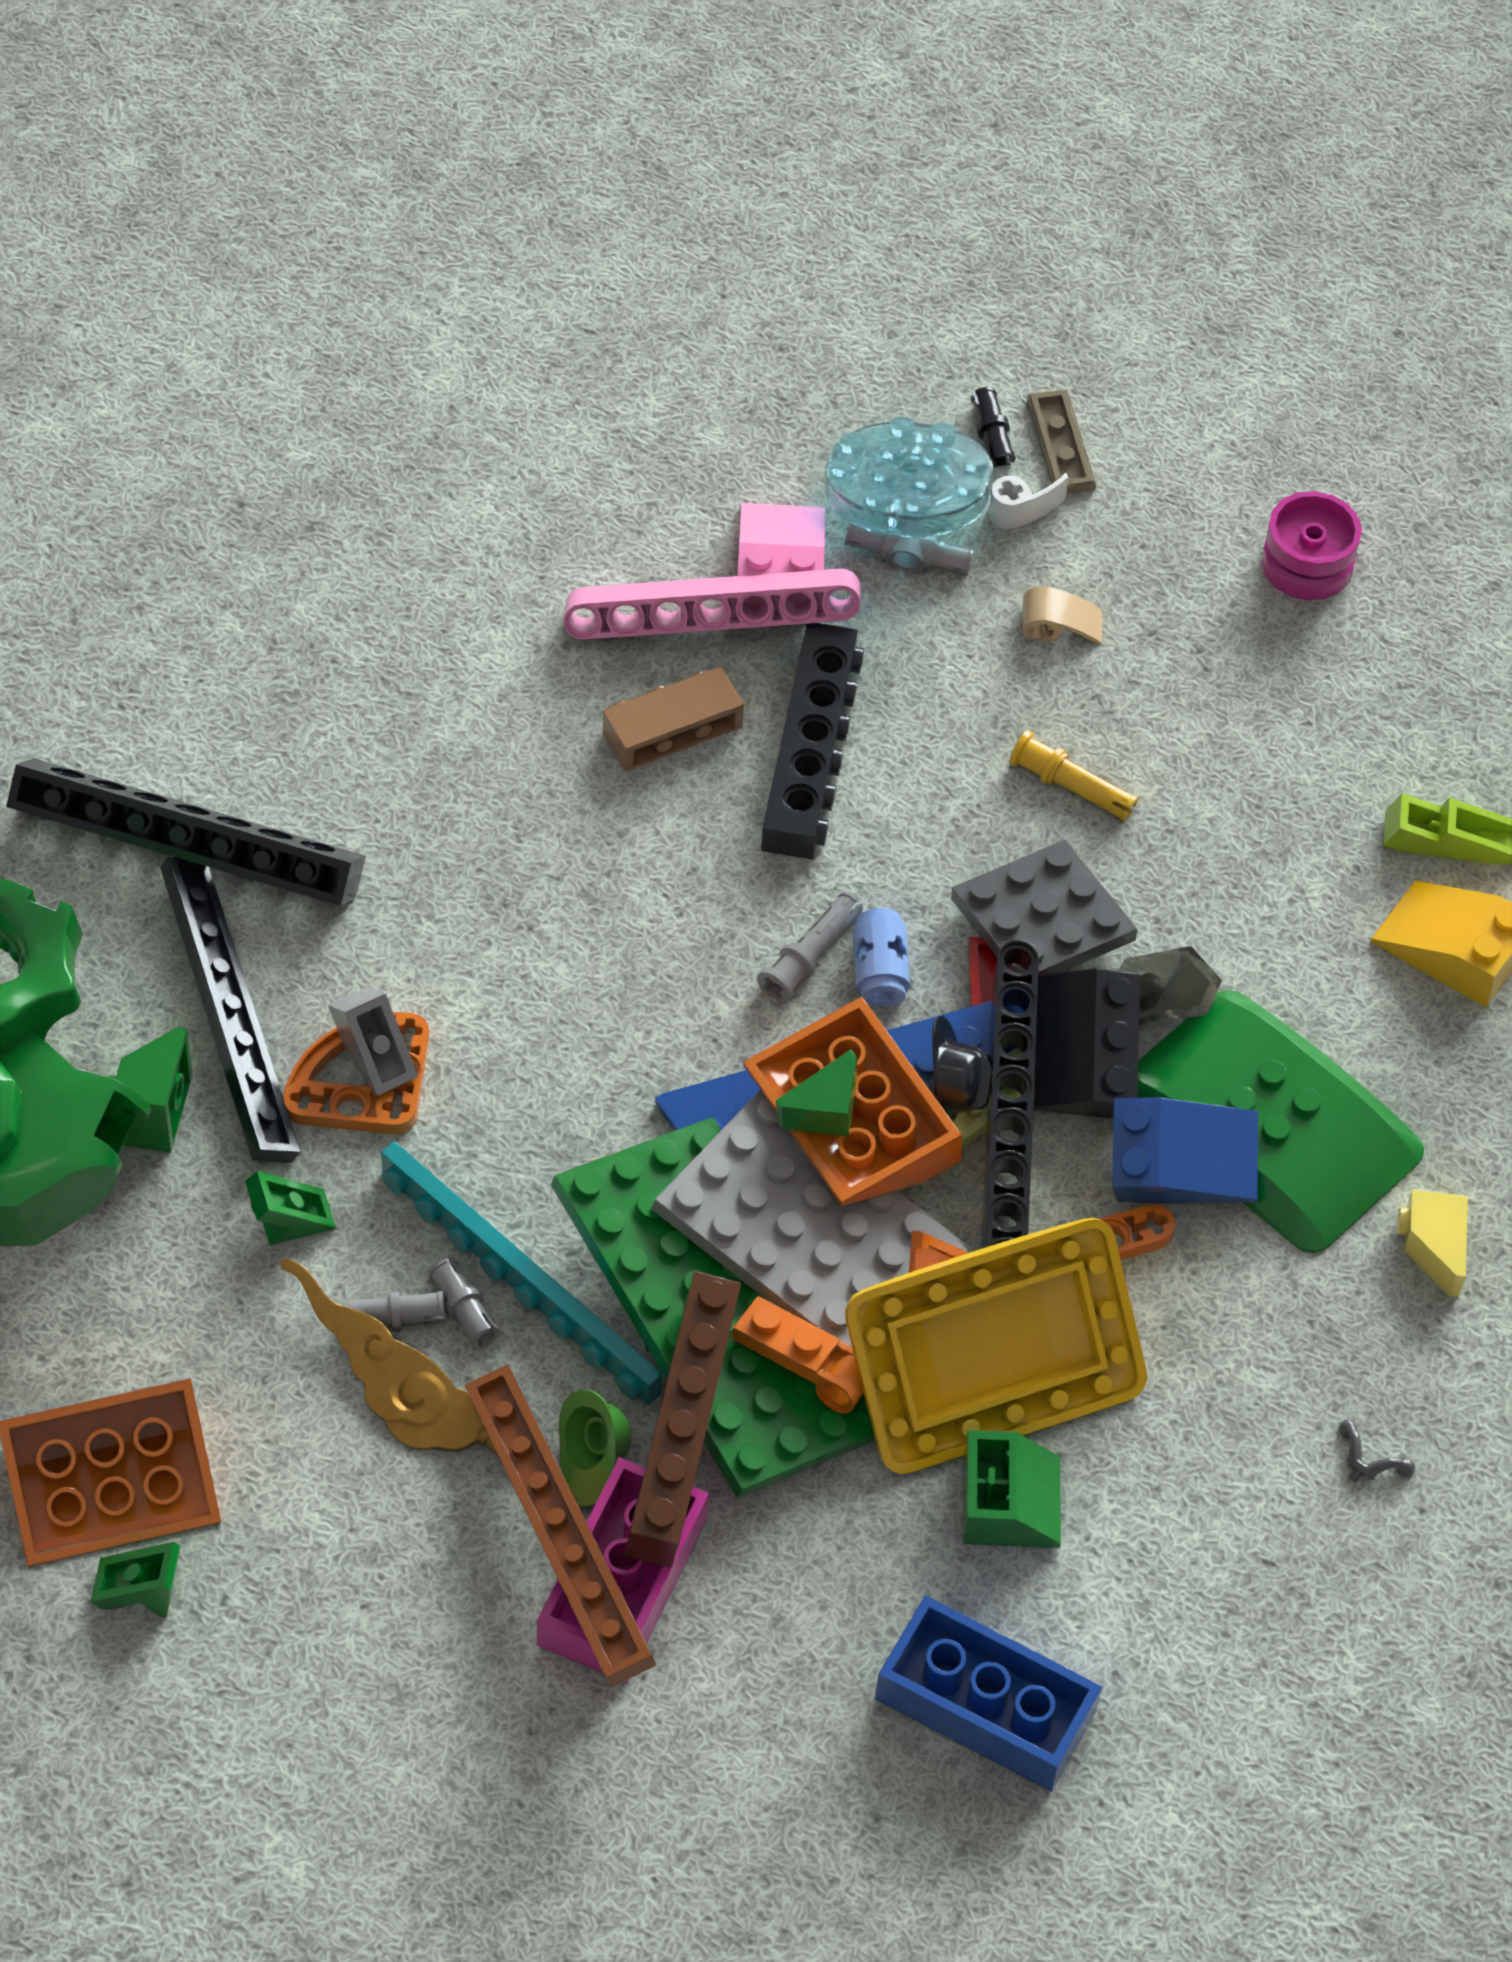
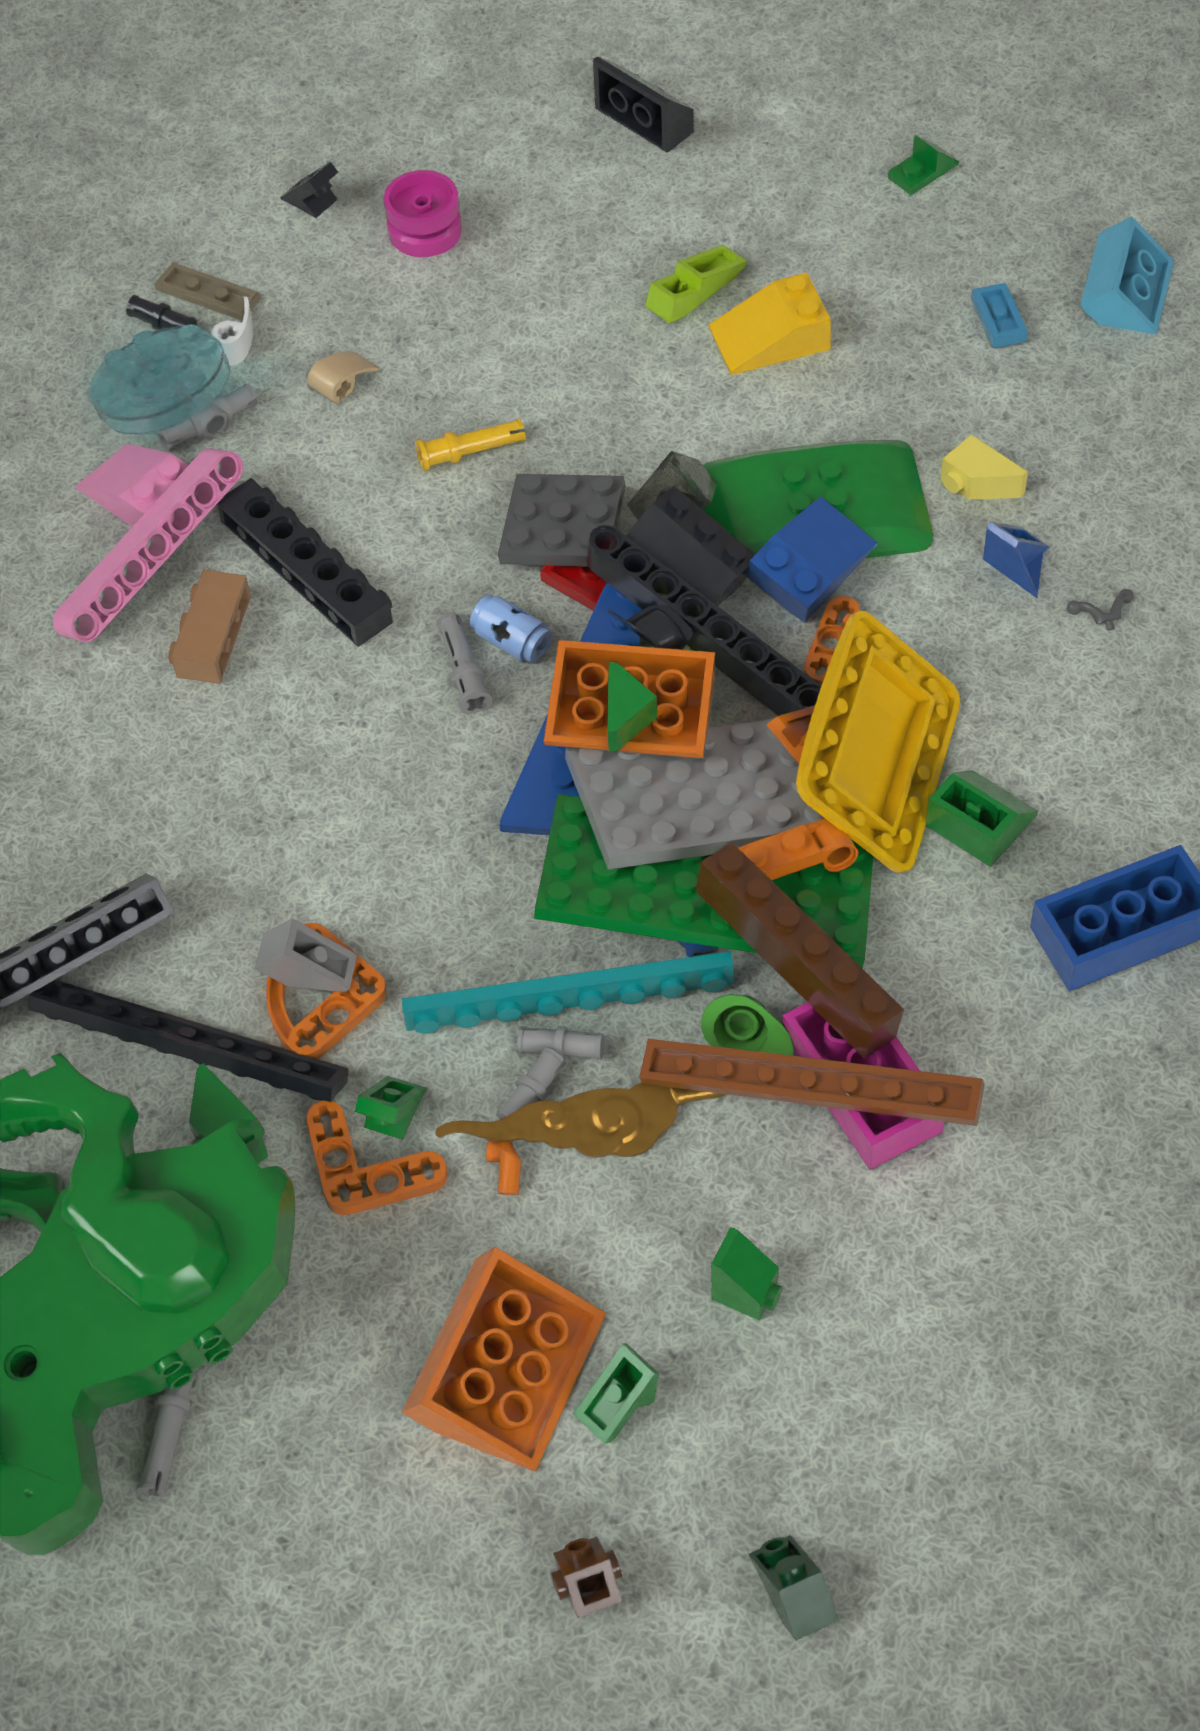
camera: 45 degrees left, 0 degrees up
(61, 1839) = (794, 1586): none -> slope
(201, 1226) = (350, 1176): none -> orange beam
(301, 1347) = (509, 1166): none -> orange arm
(329, 1602) = (744, 1276): none -> green slope
(1258, 440) = (313, 191): none -> black slope
(1367, 1333) = (1015, 554): none -> blue slope

